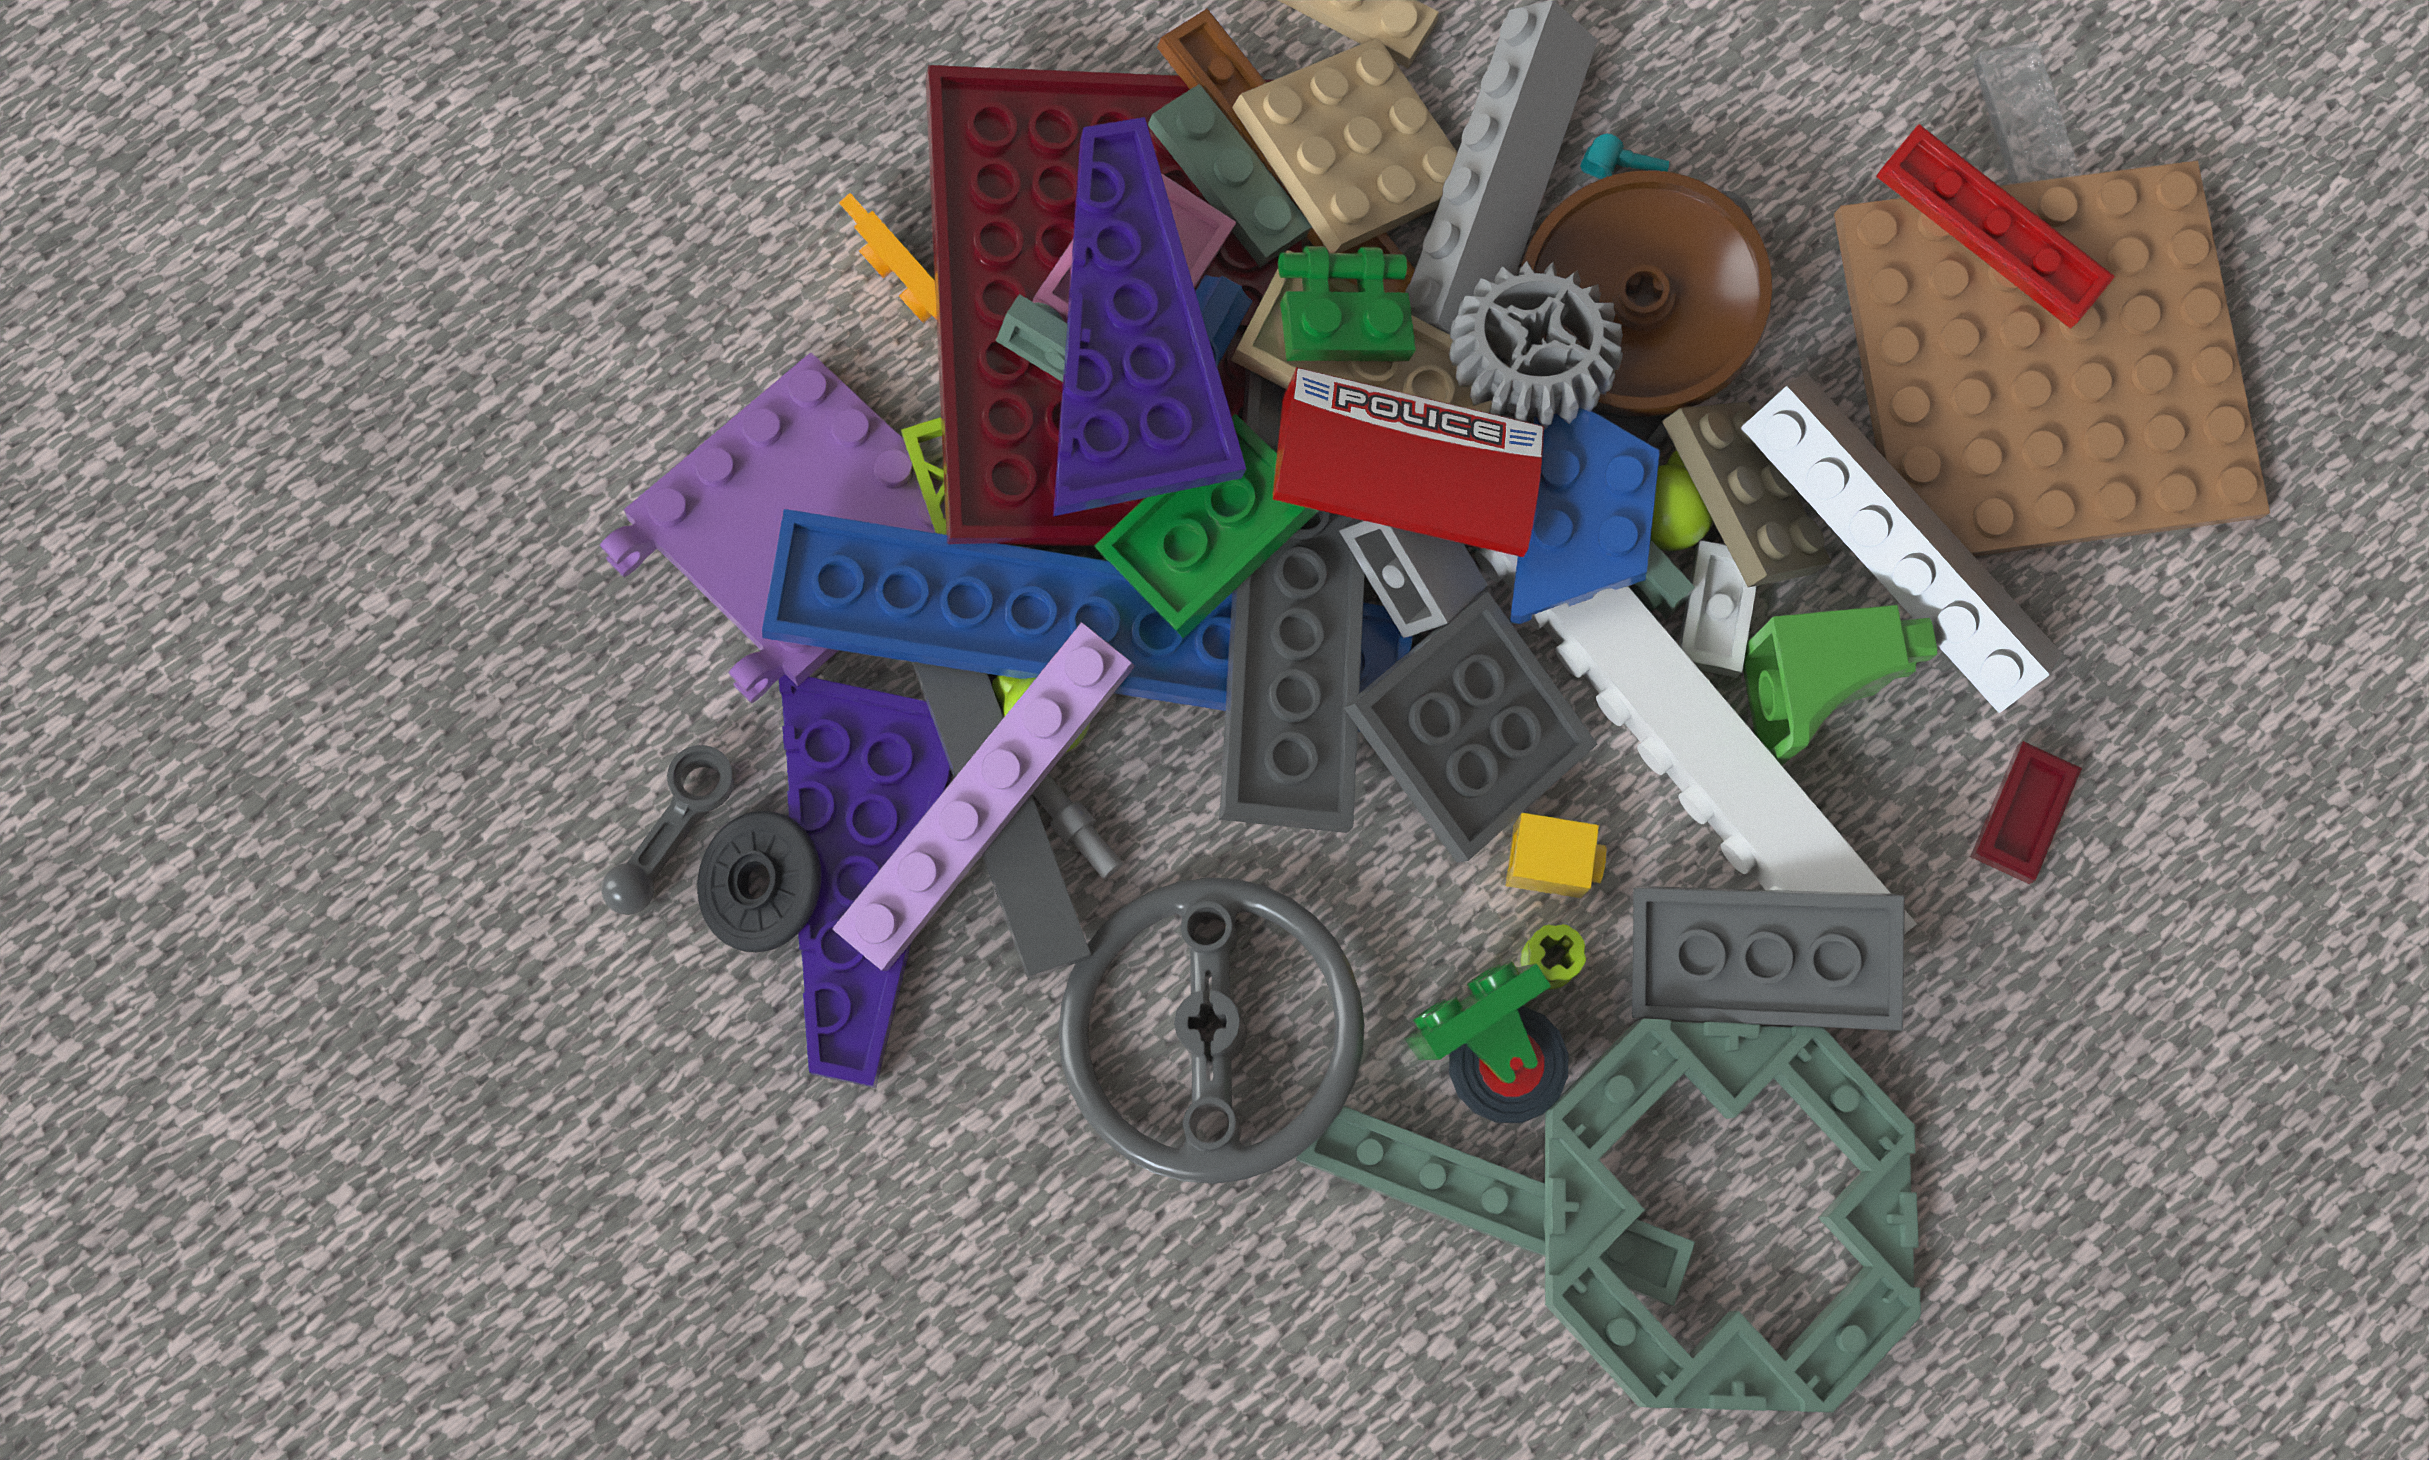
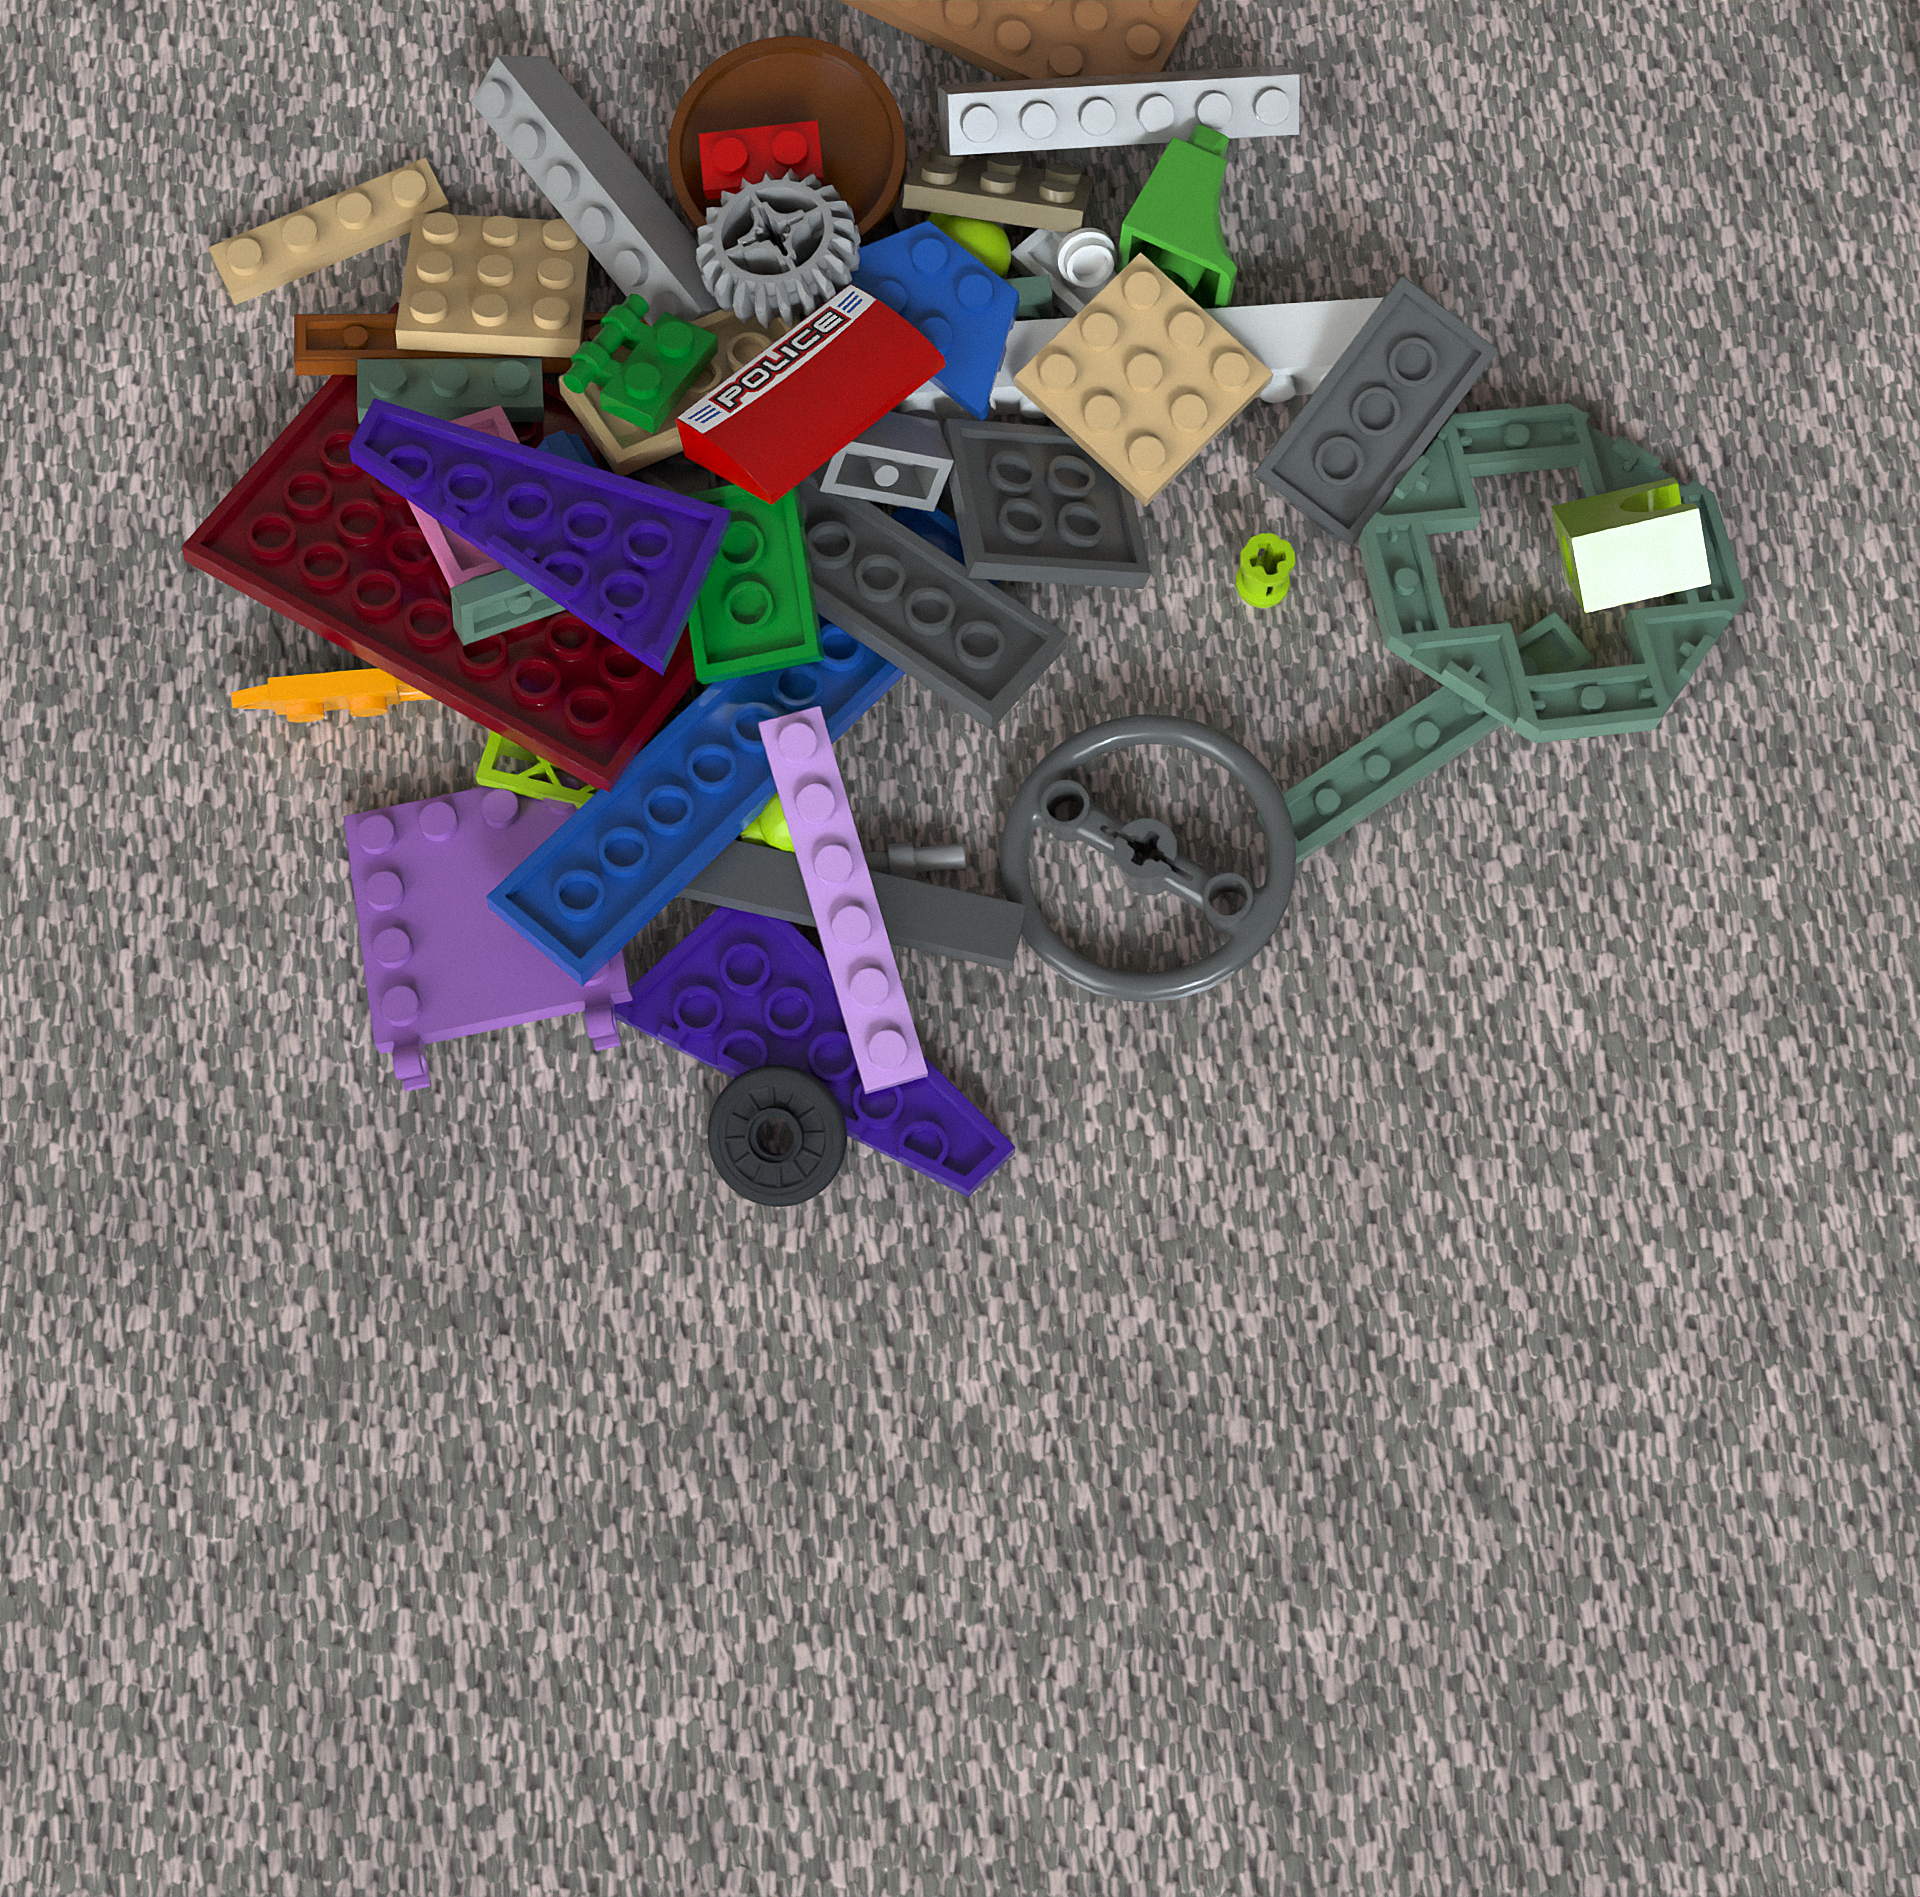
camera: 55 degrees left, 5 degrees down
(630, 885) = (705, 1244): dark grey piece -> none
(1501, 1054) = (1314, 648): plate -> none
(1555, 856) = (1186, 518): yellow brick -> none
(1608, 152) = (642, 117): teal hand -> none
(1623, 274) = (752, 151): none -> red plate
(1650, 733) = (1143, 379): none -> tan plate
(1734, 608) = (1086, 257): none -> white plate
(1788, 1274) = (1630, 545): none -> piece
(2026, 812) = (1382, 175): dark red tile -> none

